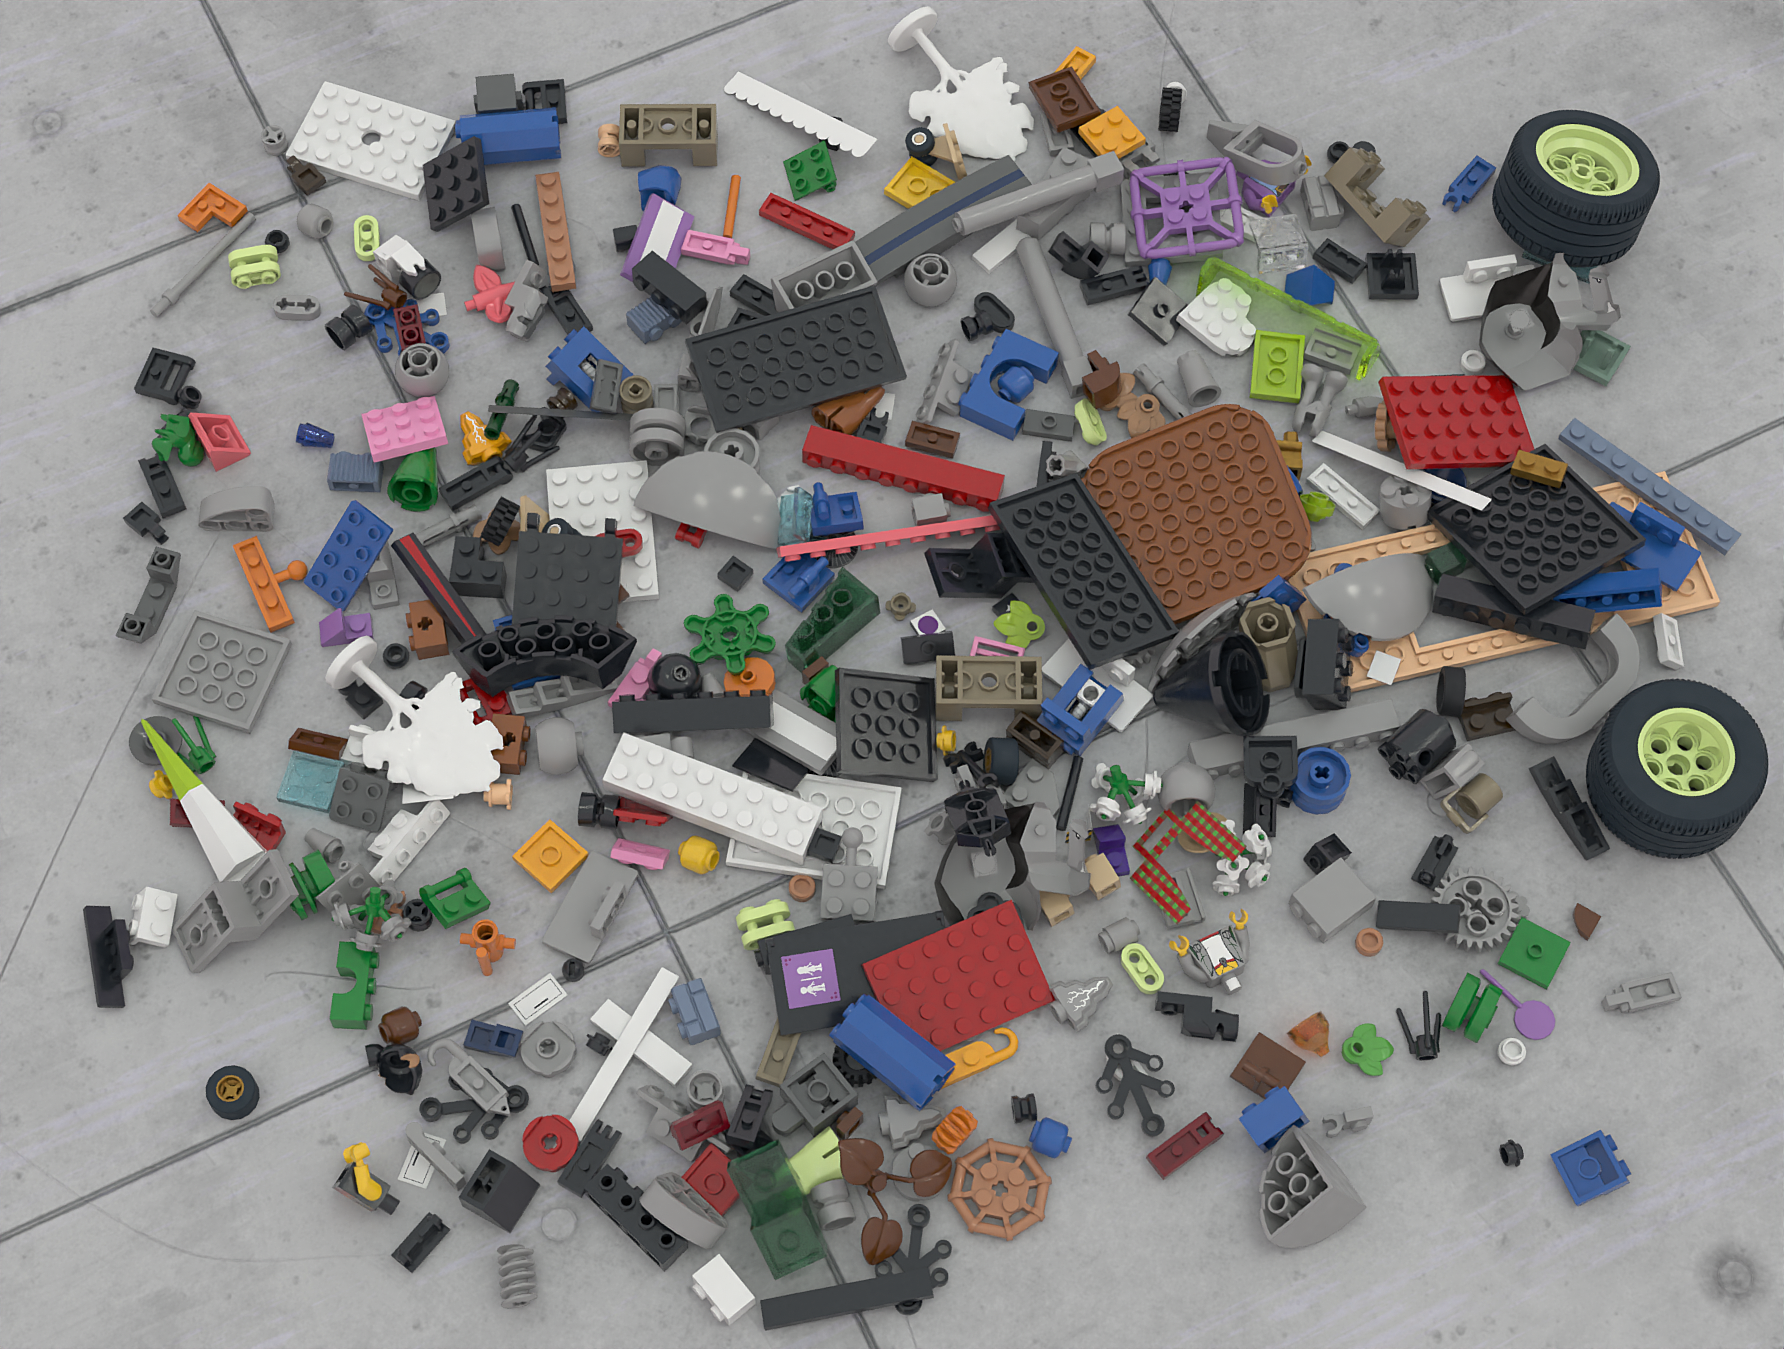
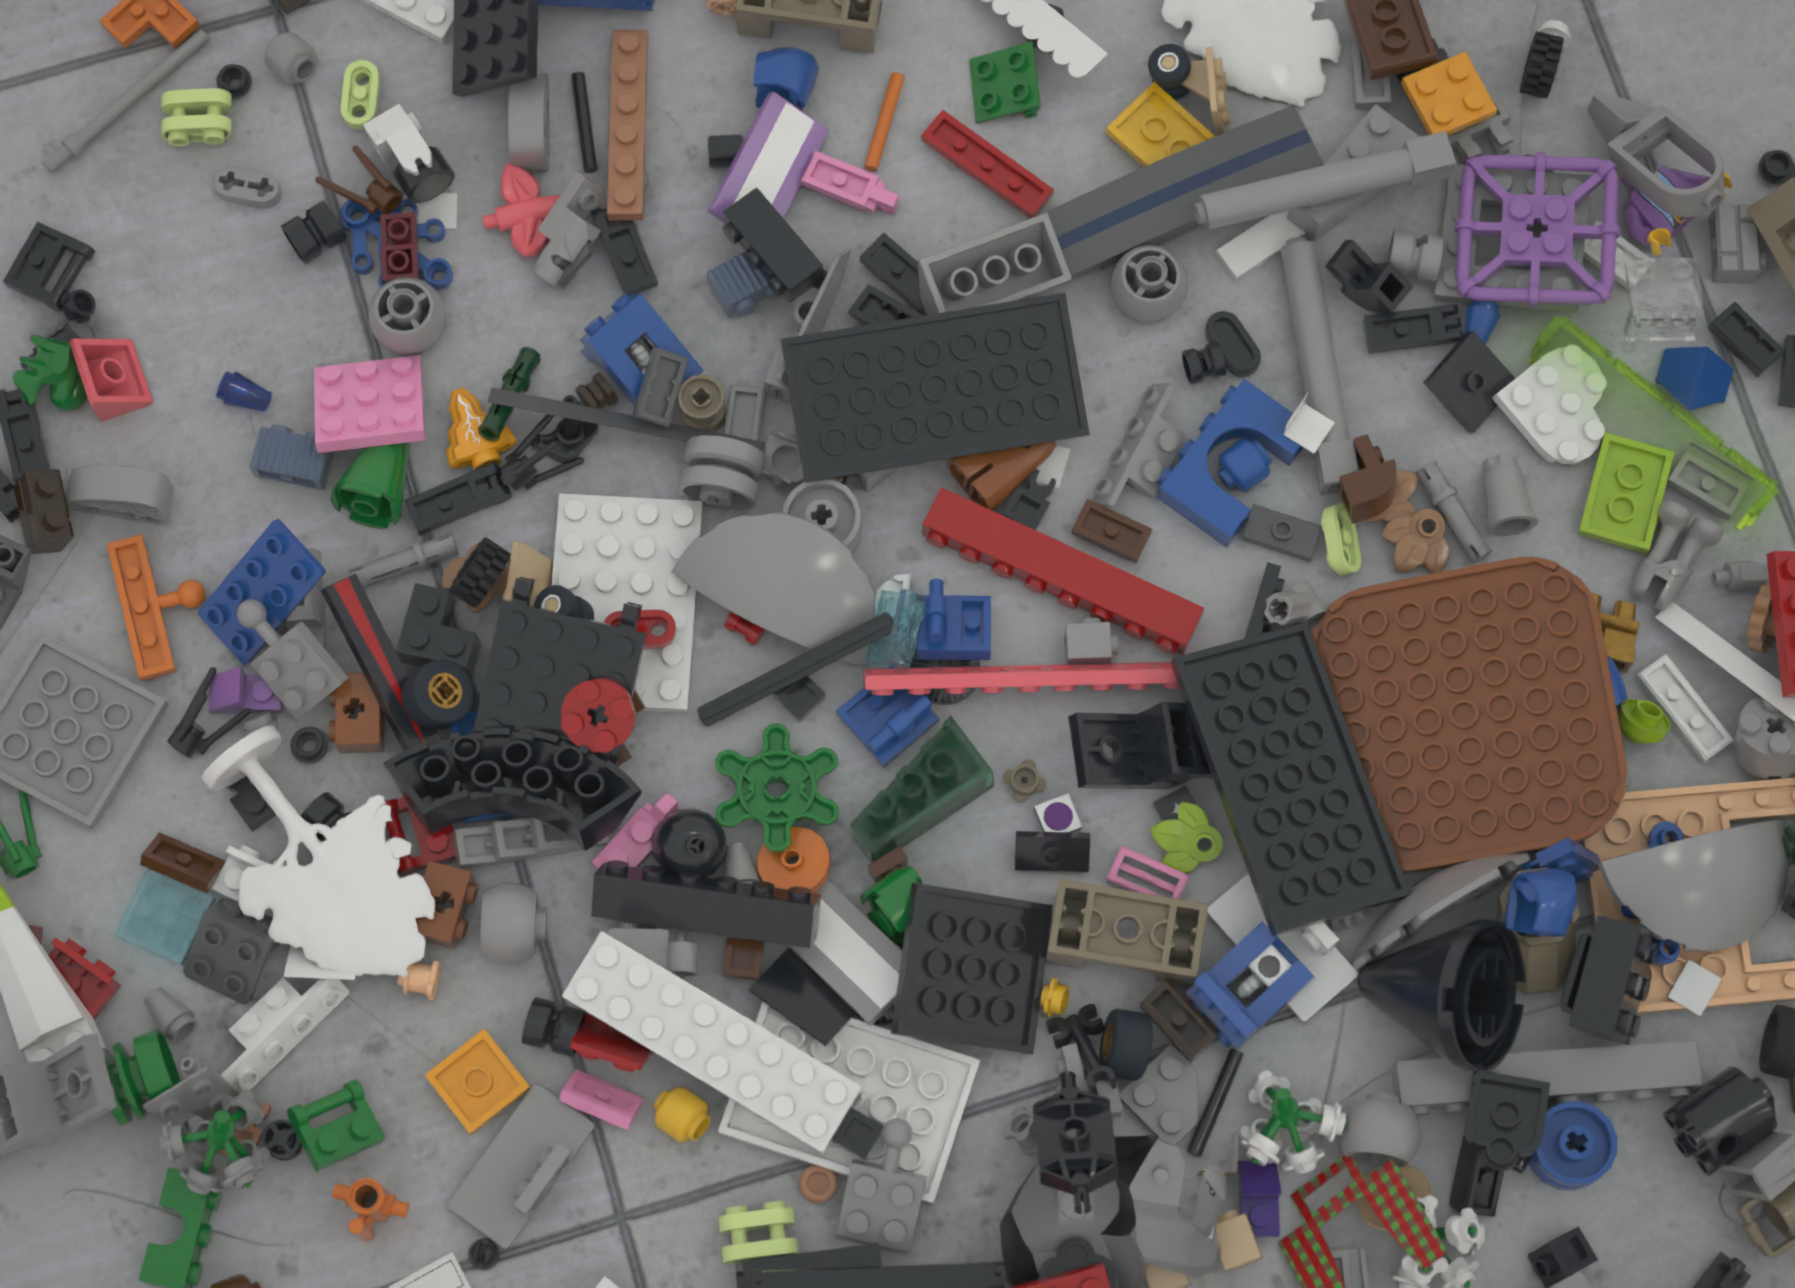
camera: 10 degrees right, 10 degrees up
(185, 529) = (43, 511): none -> dark brown brick
(309, 660) = (189, 735): none -> black plant
(380, 599) = (294, 664): none -> light grey plate
(482, 605) = (428, 704): none -> black wheel
(590, 584) = (618, 708): none -> red plate
(724, 748) = (743, 959): none -> reddish brown plate
(730, 554) = (796, 669): none -> black axle
(1053, 351) = (1308, 427): none -> white sticker
(1268, 615) = (1541, 902): none -> blue piece

